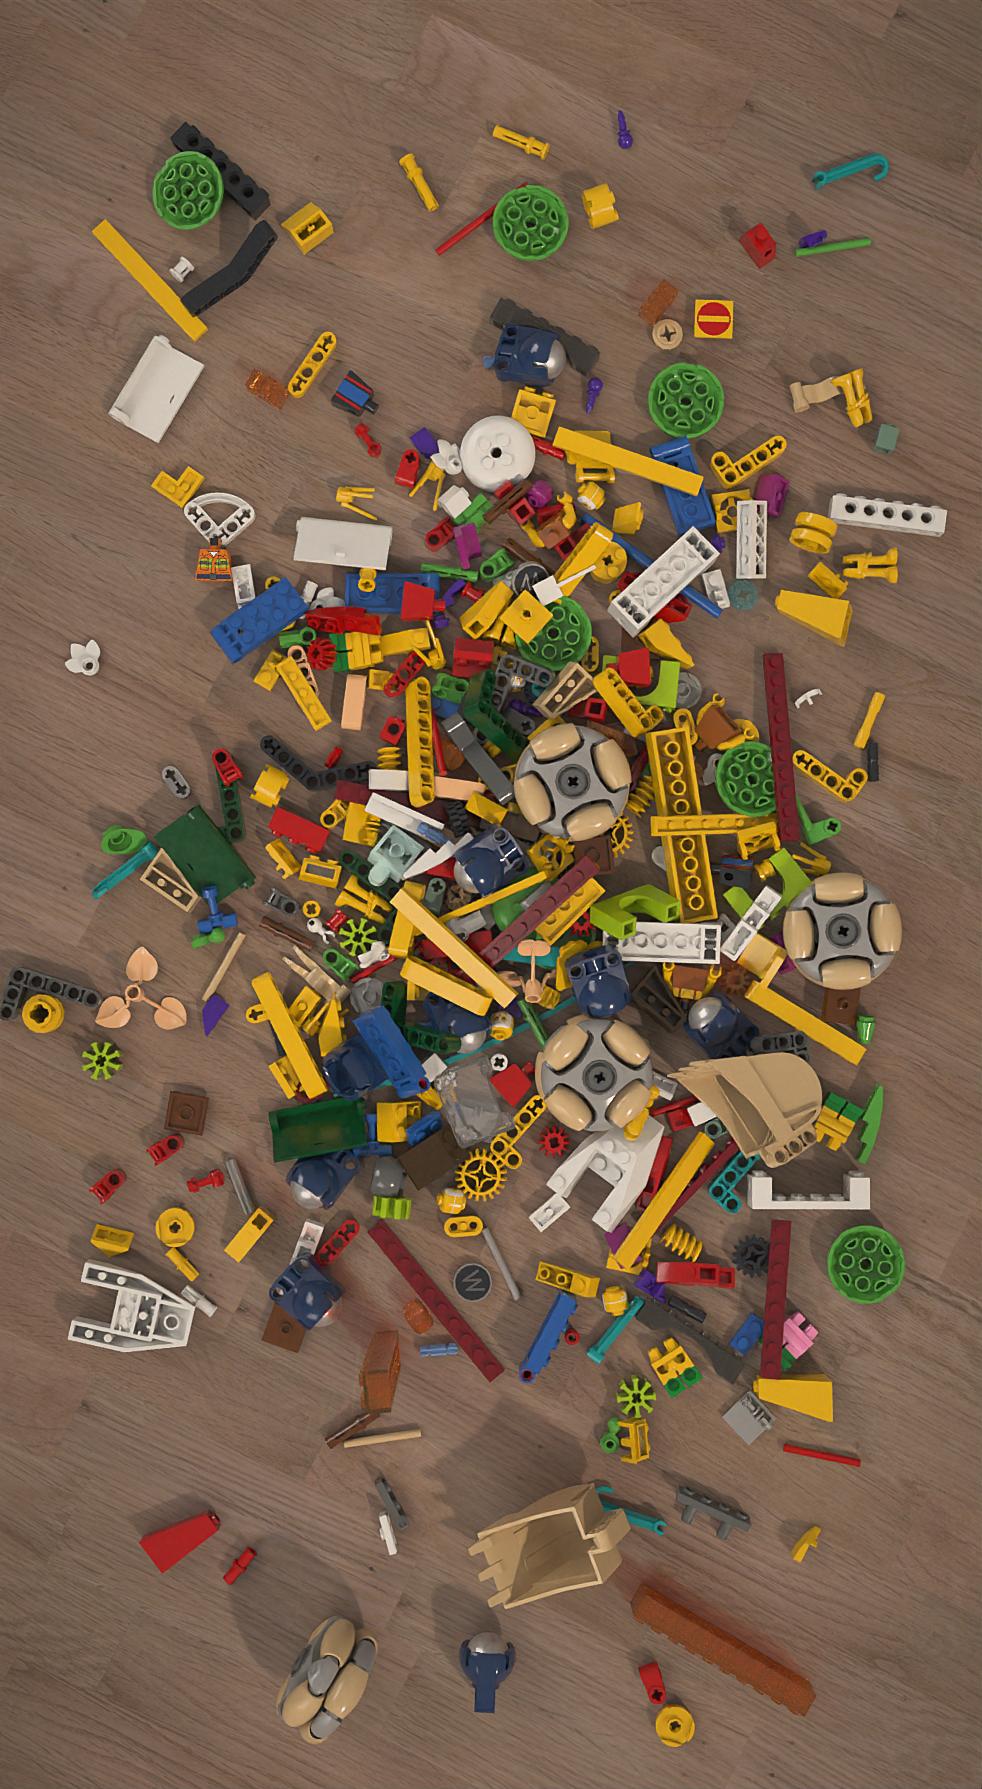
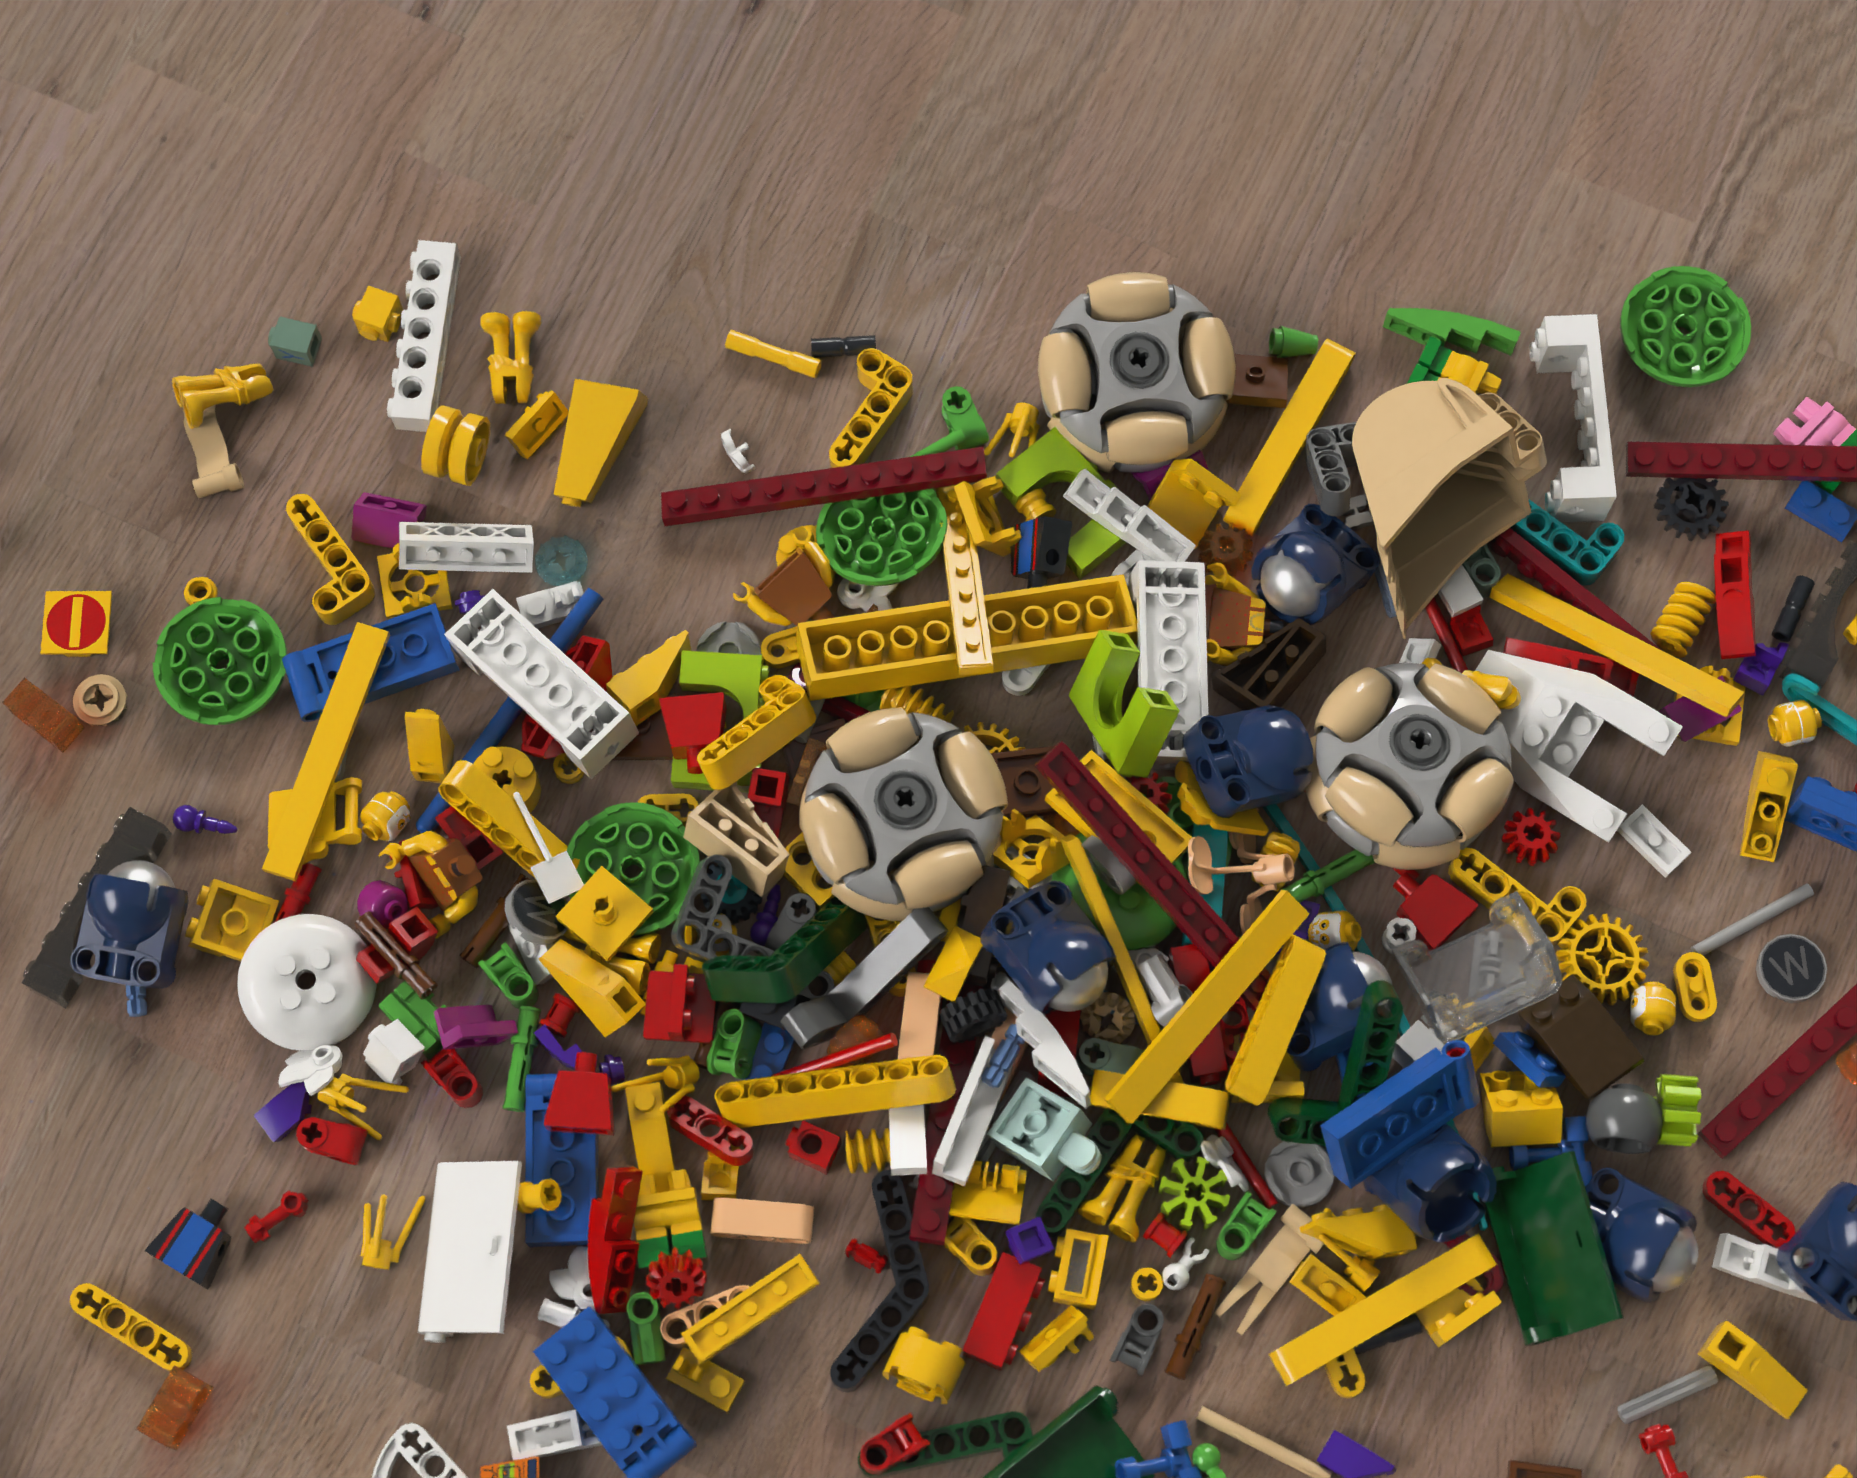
camera: 90 degrees left, 15 degrees down
(334, 845) = (1029, 1240): none -> dark purple tile
(733, 384) = (196, 585): none -> yellow plate
(901, 487) = (377, 314): none -> yellow brick

